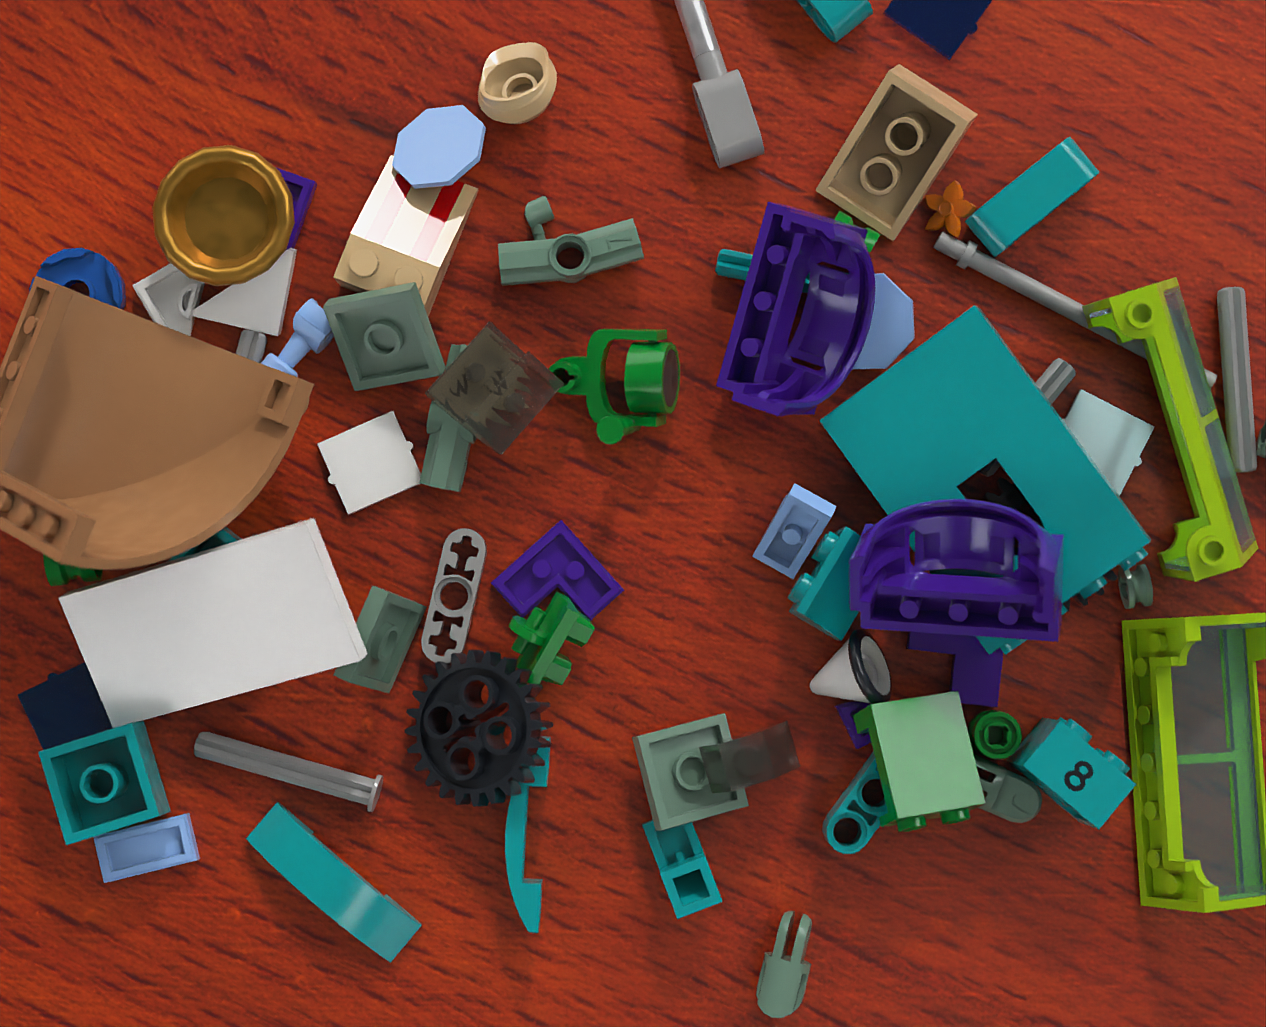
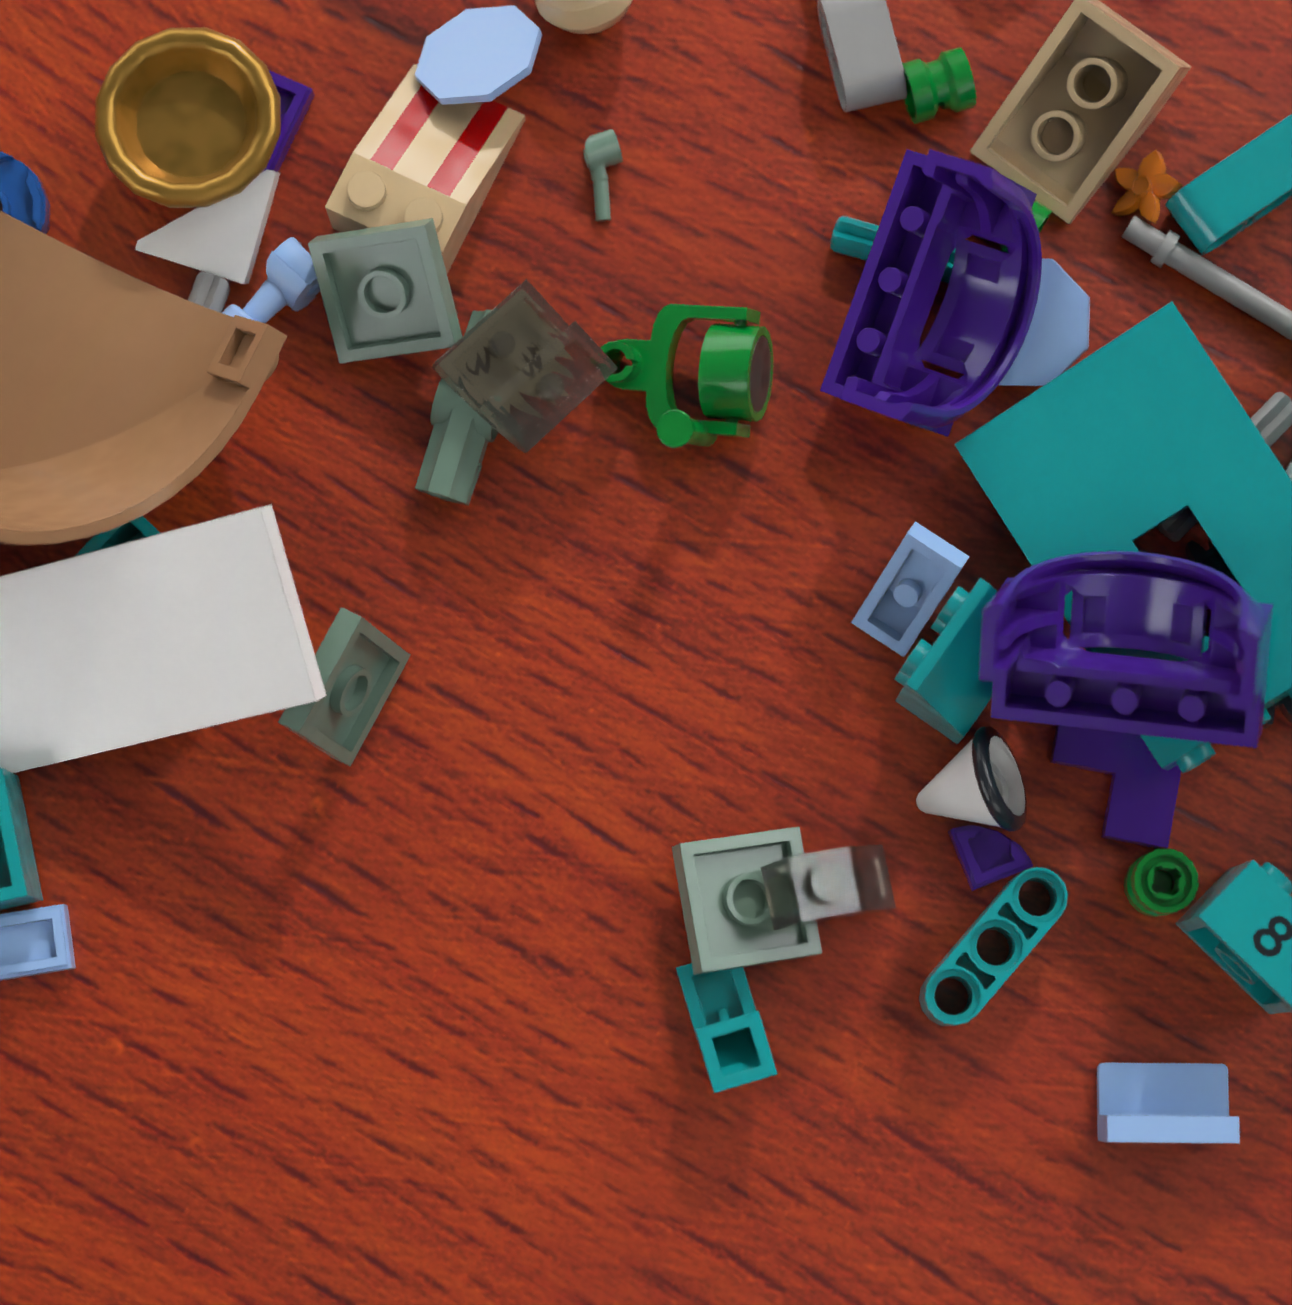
camera: 10 degrees right, 5 degrees down
(170, 298) = (109, 223): white tile -> none
(289, 769) = (208, 855): light grey axle -> none
(332, 883) = (252, 1014): teal slope -> none
(370, 462) = (352, 460): white piece -> none
(473, 564) = (477, 603): light grey beam -> none
(496, 766) = (466, 816): black gear -> none
(525, 891) = (535, 885): teal slope -> none
(537, 259) = (680, 202): sand green piece -> none
(543, 636) = (562, 702): green hips -> none
(559, 562) = (592, 610): dark purple tile -> none
(783, 976) = (854, 1192): sand green arm -> none
(788, 140) = (938, 83): none -> green wheel
(923, 760) = (1062, 905): panel -> none
(1007, 896) = (1164, 1103): none -> light blue panel
(1008, 793) = (1169, 963): sand green arm -> none

